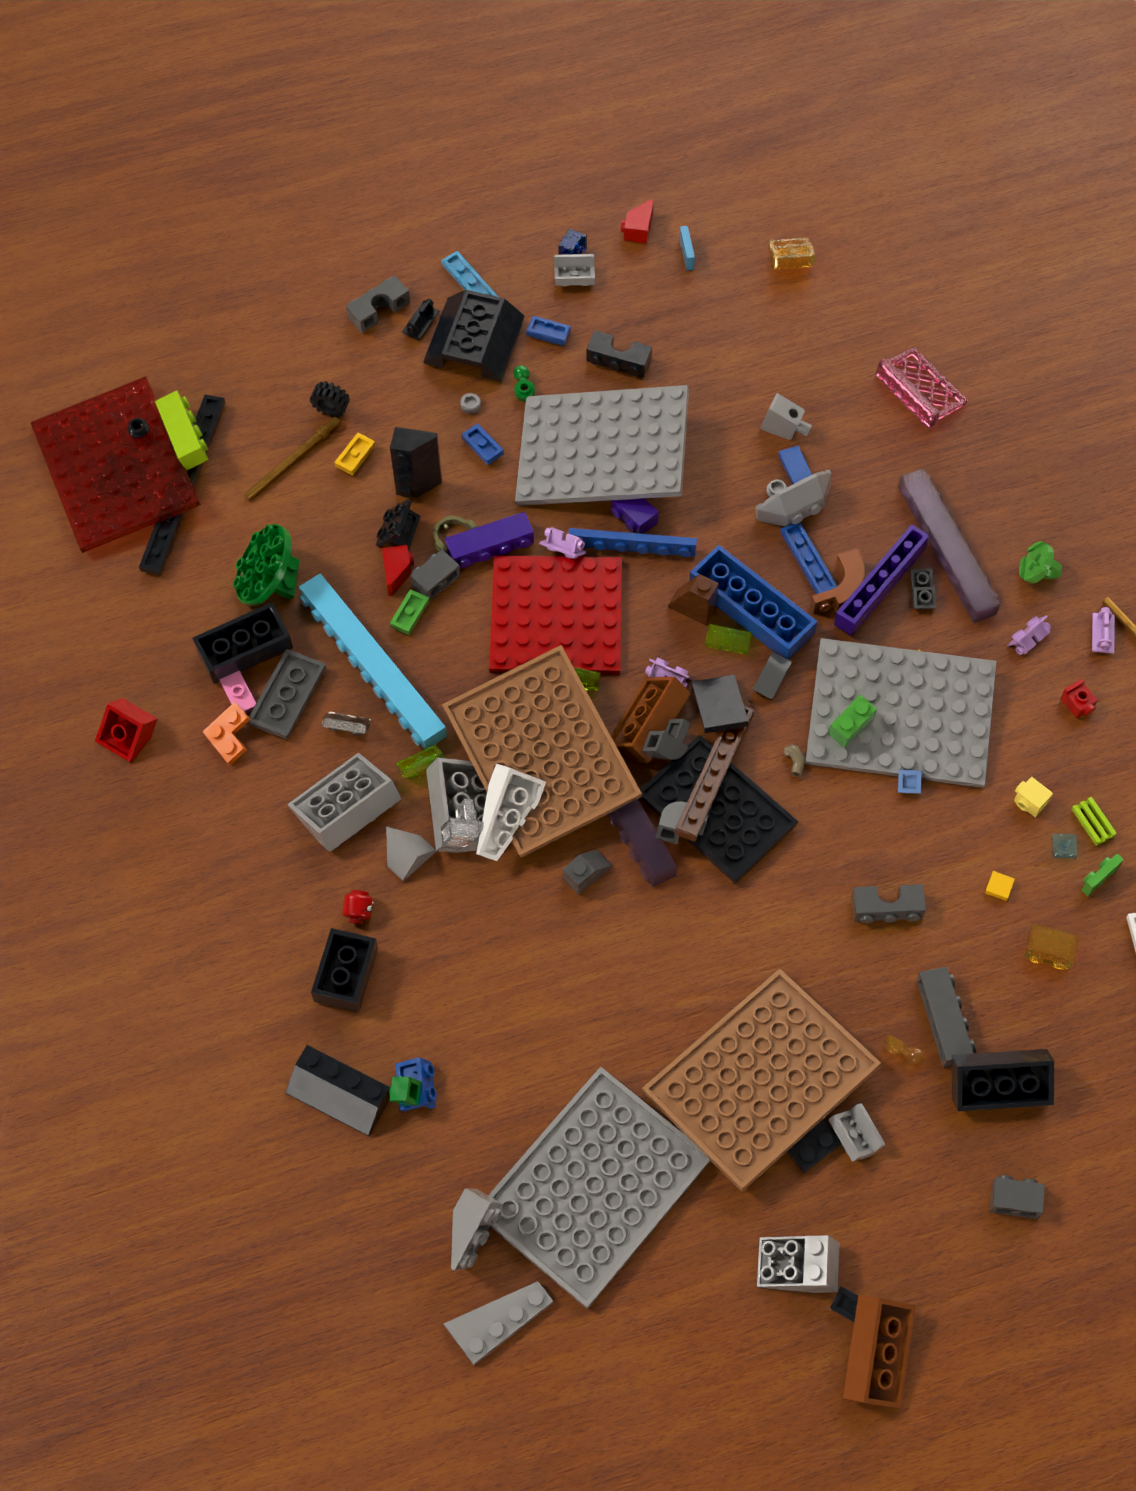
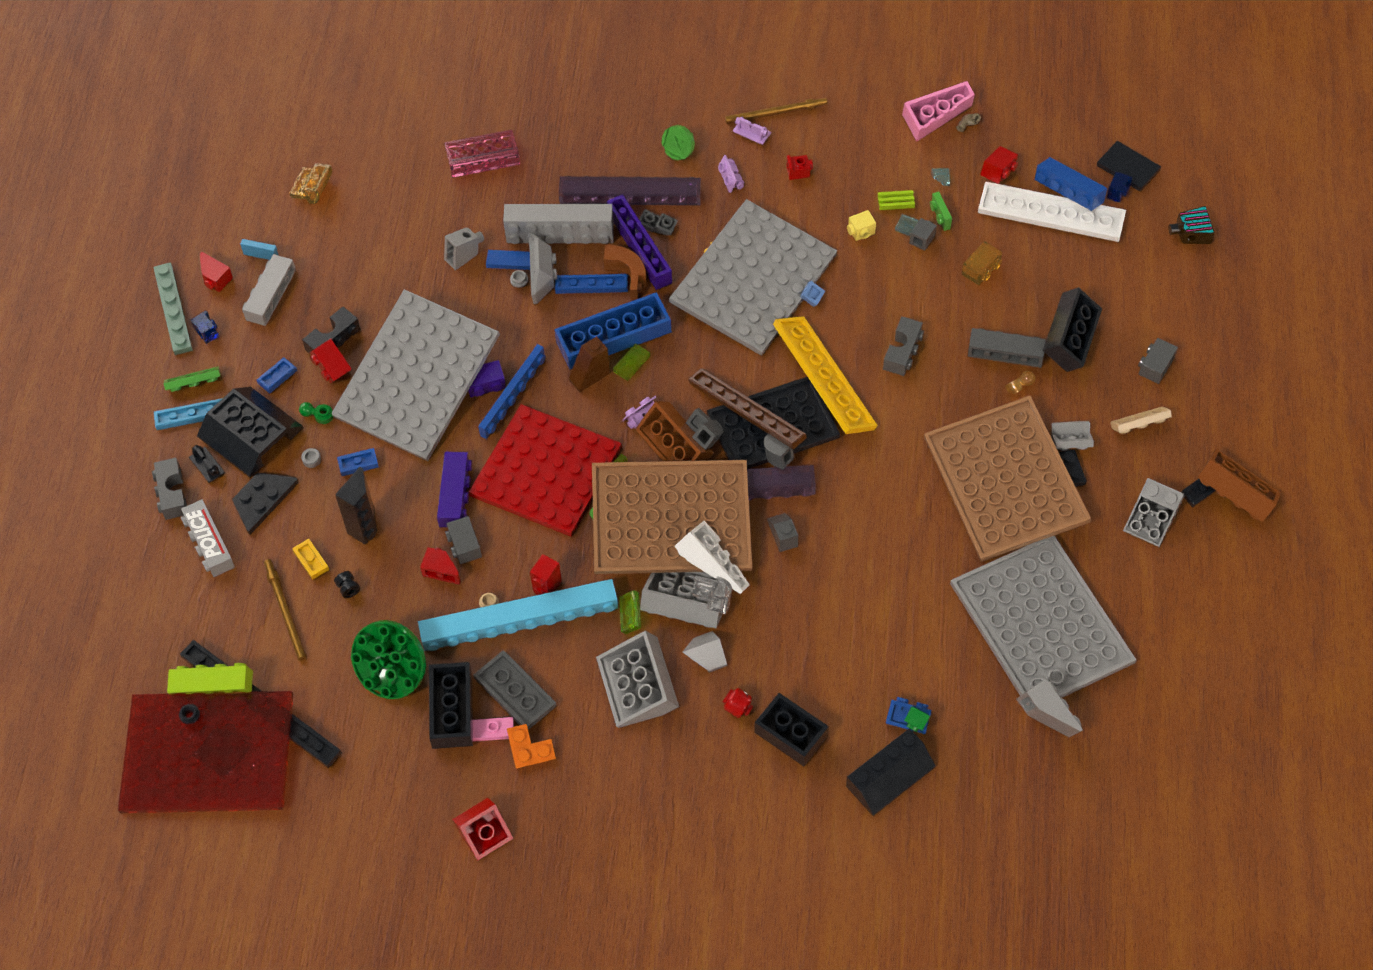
camera: 65 degrees left, 5 degrees down
(329, 399) = (248, 556): black tyre -> none
(339, 356) = (207, 537): none -> light grey brick
(340, 495) = (347, 585): none -> black wheel
(351, 723) = (566, 653): clear smoke plate -> none
(377, 628) = (488, 599): none -> tan plate
(398, 526) = (401, 551): black bracket -> none
(404, 382) = (261, 497): none -> black wing
(409, 612) = (487, 571): bright green plate -> none
(420, 664) = (545, 575): none -> red brick
(444, 524) = (436, 528): olive piece -> none
(494, 1323) = (1123, 732): light grey wing -> none
(508, 263) = (192, 379): none -> bright green plate
(571, 546) = (481, 442): lavender hinge -> none
(574, 270) = (231, 334): light grey bracket -> none
(581, 365) = (330, 361): none -> red brick
(583, 210) = (172, 308): none -> sand green plate
(643, 278) = (269, 290): none -> light grey brick
(719, 704) = (687, 386): tile -> none
(772, 675) = (681, 344): dark grey slope -> none
(798, 758) = (757, 356): dark tan arm -> none
(804, 835) = (825, 375): none -> yellow plate
(852, 721) = (752, 303): bright green brick -> none
(860, 493) = (559, 223): none -> light grey brick
(921, 1205) = (1141, 420): none -> tan plate
(999, 886) = (919, 275): yellow tile -> none
(1058, 867) = (923, 234): none -> dark grey brick

